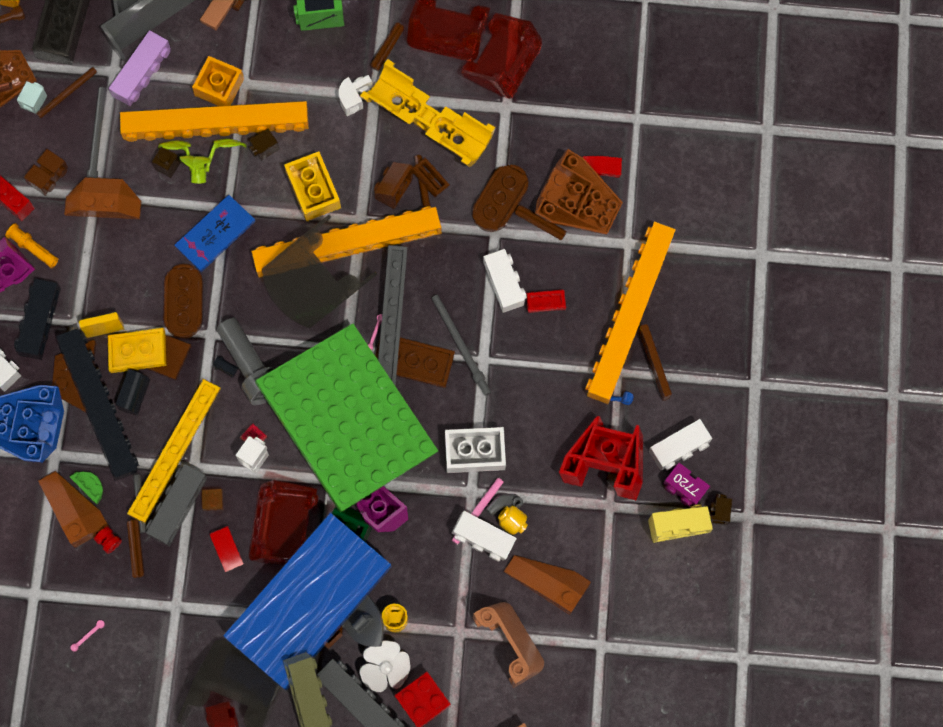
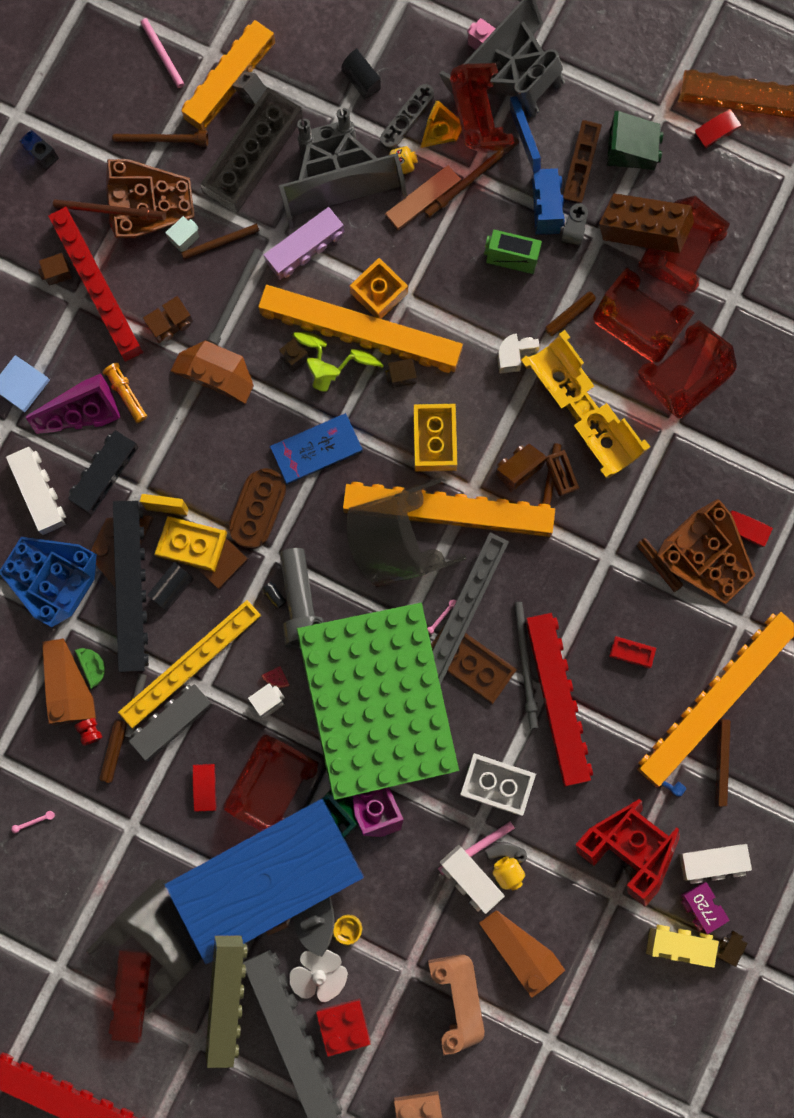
camera: 25 degrees right, 5 degrees up
(212, 499) = (209, 730): clear orange plate -> none
(499, 363) = (558, 700): none -> red brick
(500, 198) = (627, 522): reddish brown tile -> none
(504, 280) = (597, 614): white brick -> none

